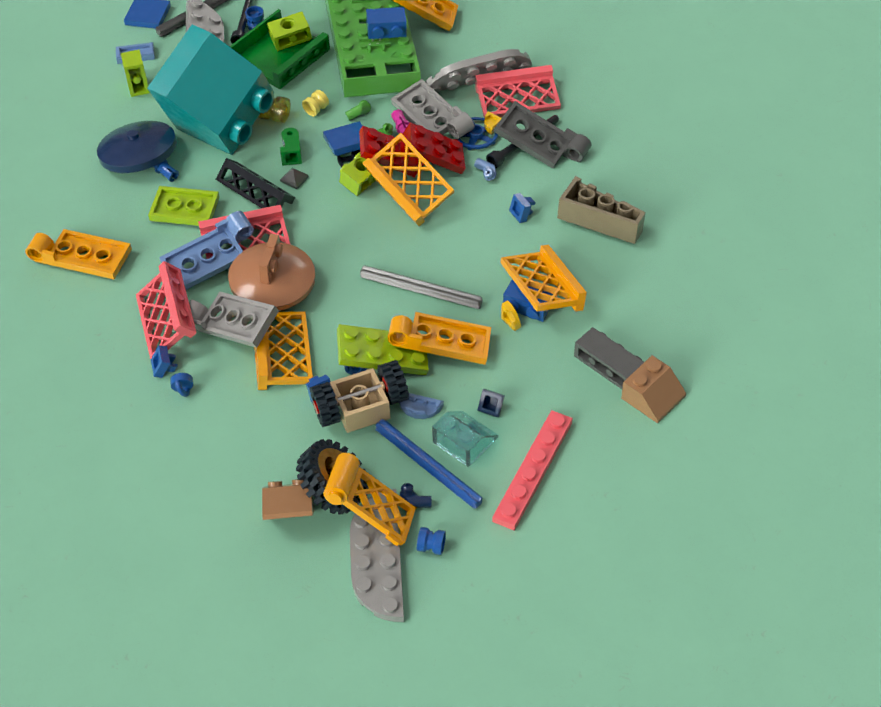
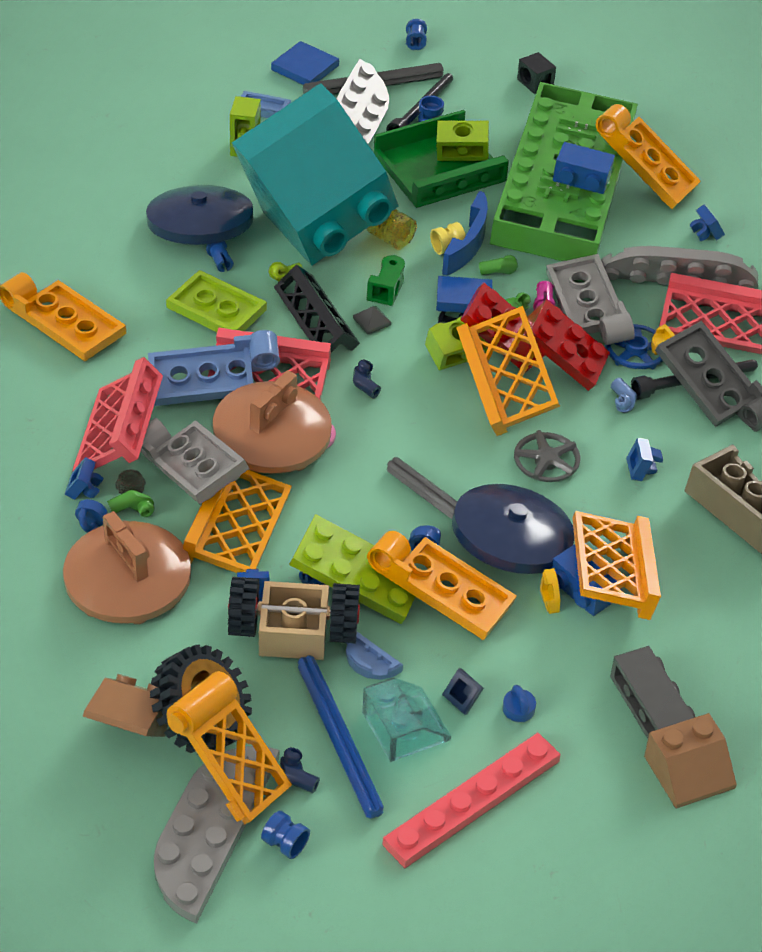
camera: 20 degrees right, 5 degrees down
(195, 351) = (130, 480): none -> clear smoke plate
(206, 362) = (135, 500): none -> bright green arm
(214, 166) = (278, 270): none -> lime arm
(228, 412) = (126, 571): none -> nougat bracket
(311, 221) = (362, 378): none -> dark blue arm
(328, 108) = (462, 251): none -> blue slope
(410, 309) = (427, 531): none -> blue tile
(459, 228) = (547, 457): none -> dark grey wheel
(465, 284) = (511, 528): none -> dark blue dish
(479, 32) = (707, 224): none -> blue tile
(529, 397) = (519, 704): none -> blue tile

